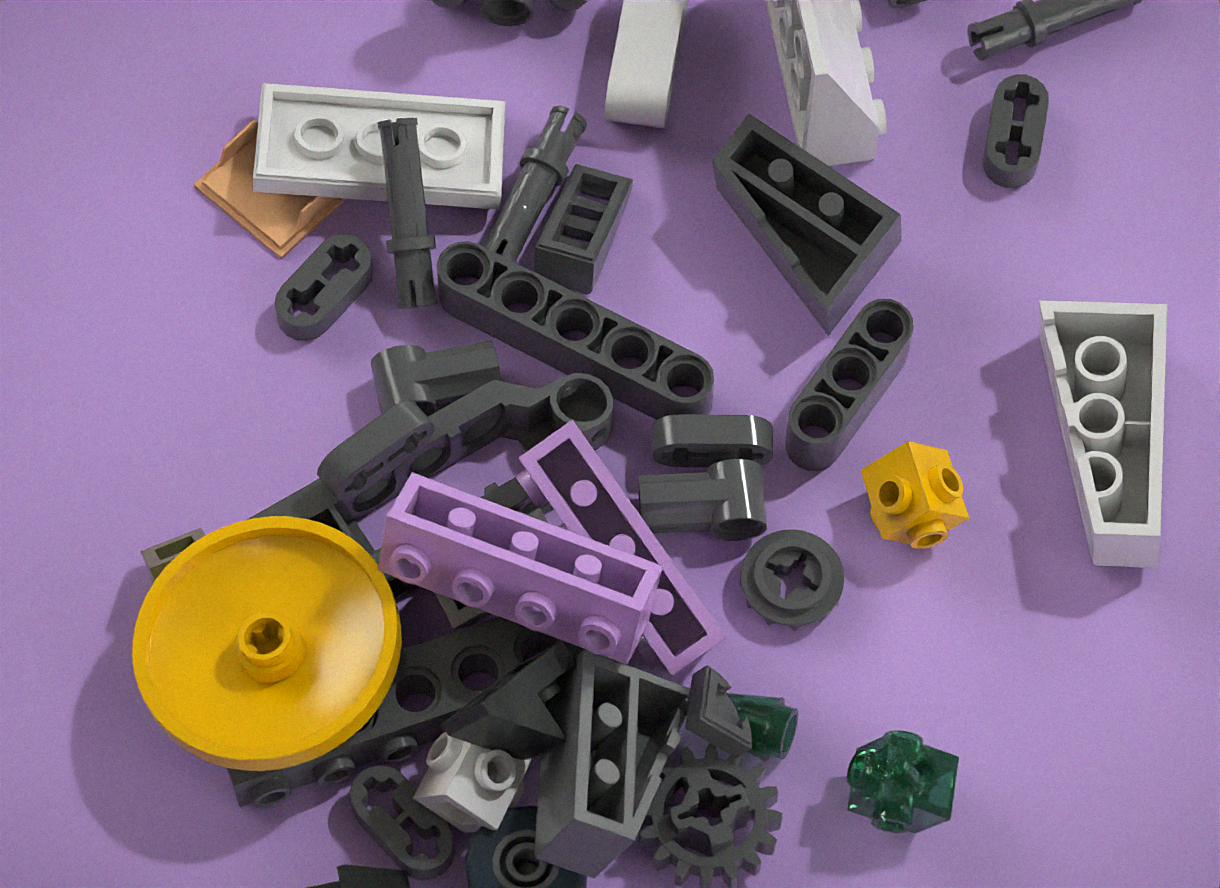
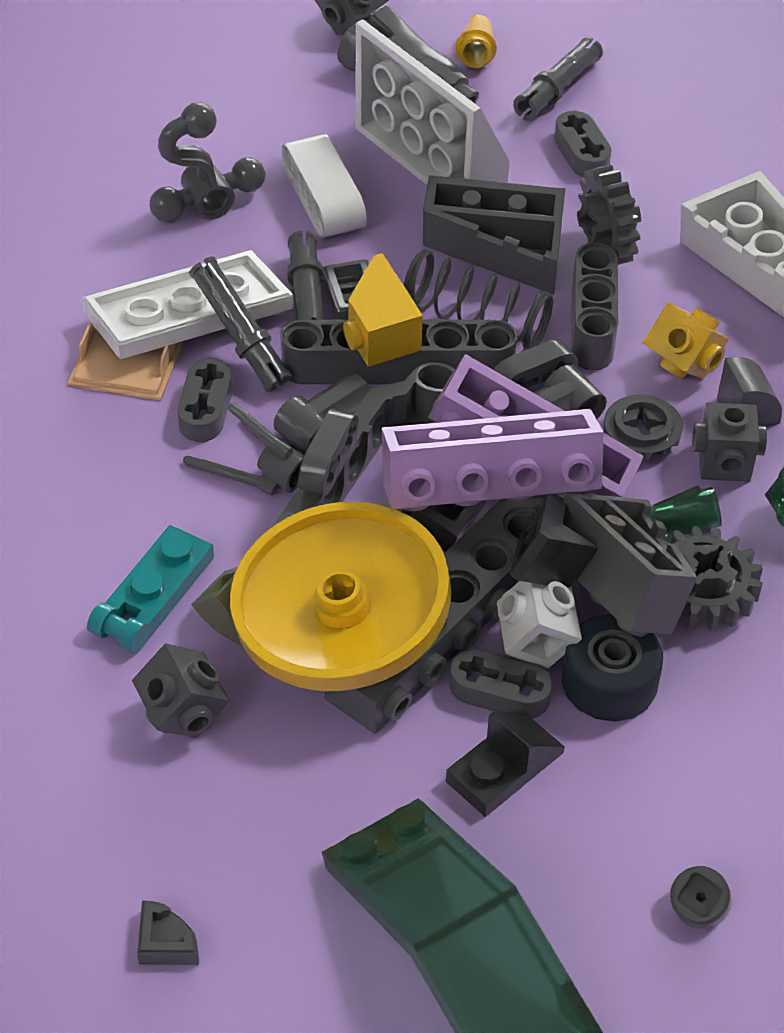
camera: 30 degrees left, 15 degrees down
(55, 658) = (180, 691): none -> dark grey brick
(116, 507) = (152, 589): none -> teal plate
(342, 412) = (277, 461): none -> dark grey plant
(553, 291) = (382, 316): none -> yellow slope
(714, 715) = (669, 508): dark grey tile -> none
(753, 367) = (525, 335): none -> dark grey piece
(865, 656) = (729, 441): none -> dark grey brick
(940, 273) = (609, 212): none -> dark grey gear
(944, 604) = (746, 383): none -> dark grey brick

